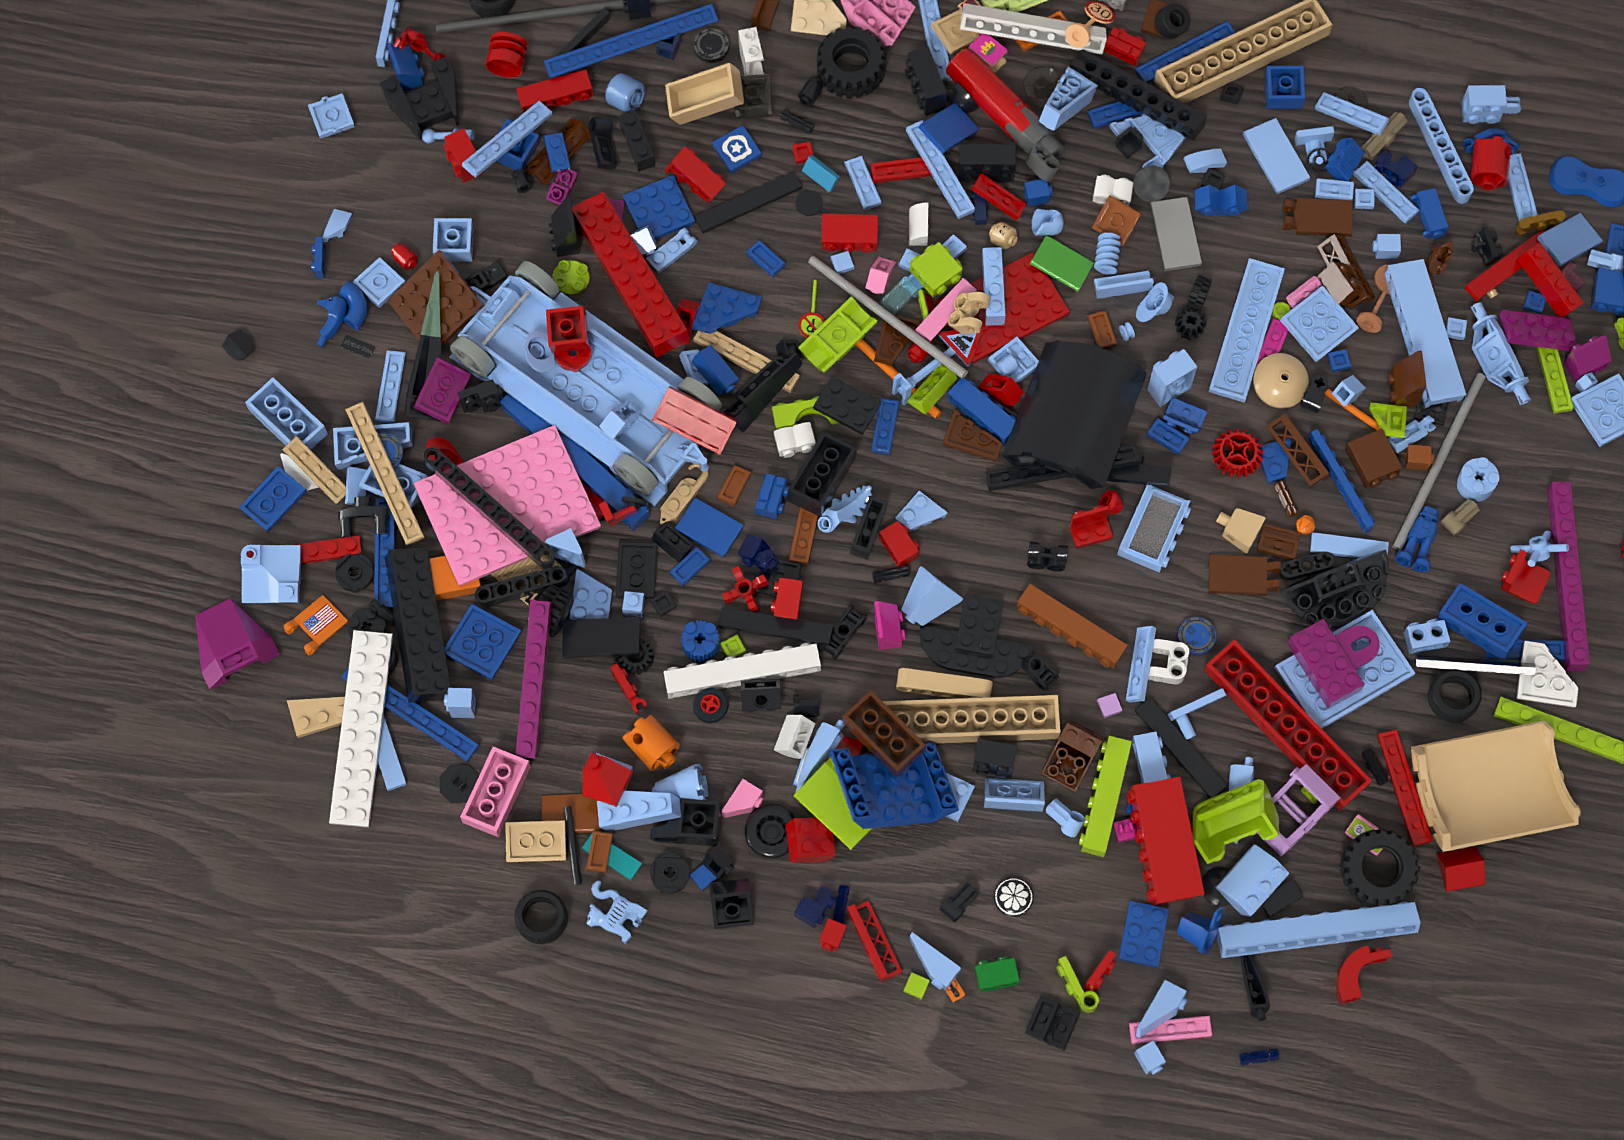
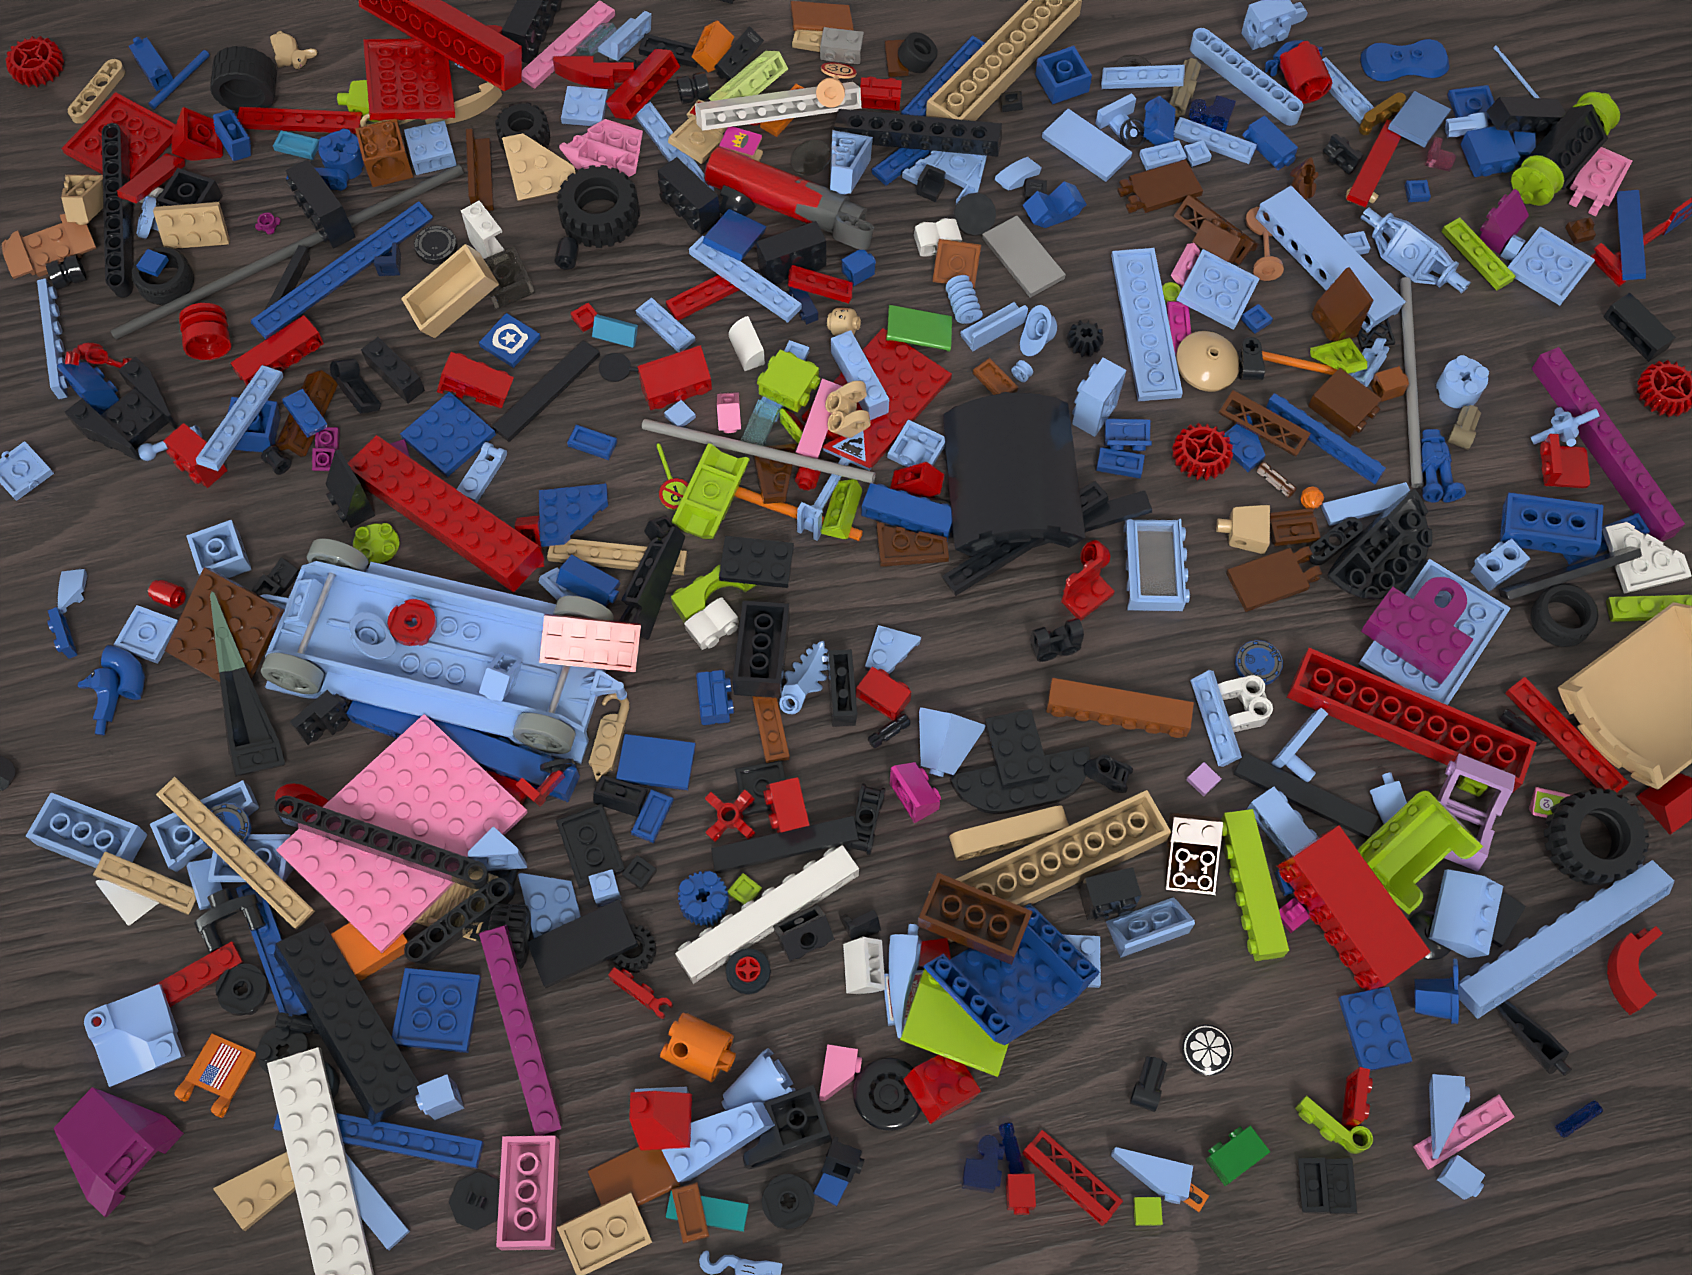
camera: 25 degrees left, 5 degrees down
(273, 499) = (104, 940): blue plate -> none
(357, 346) = (148, 718): black sticker -> none
(390, 387) = (205, 749): light blue tile -> none
(440, 390) = (268, 728): magenta plate -> none
(567, 329) = (395, 596): red brick -> none
(572, 845) = (653, 1220): black bar -> none
(625, 93) = (358, 324): medium blue head -> none
(644, 240) = (446, 470): brick -> none
(731, 903) = (880, 1207): black slope -> none
(734, 485) = (664, 702): dark orange tile -> none
(757, 553) = (726, 768): clear blue brick -> none
(797, 122) = (564, 288): black axle -> none
(885, 426) = (807, 571): blue tile -> none
(907, 257) = (751, 388): light blue plate -> none
(1047, 222) = (883, 292): light blue hair -> none
(1069, 820) = (1229, 930): light blue piece -> none
(1199, 292) = (1080, 302): black tyre -> none
(1348, 390) = (1284, 343): light blue brick -> none
(1387, 246) = (1245, 189): light blue brick -> none
(1538, 330) = (1442, 212): magenta plate -> none
(1550, 280) = (1426, 161): red brick -> none

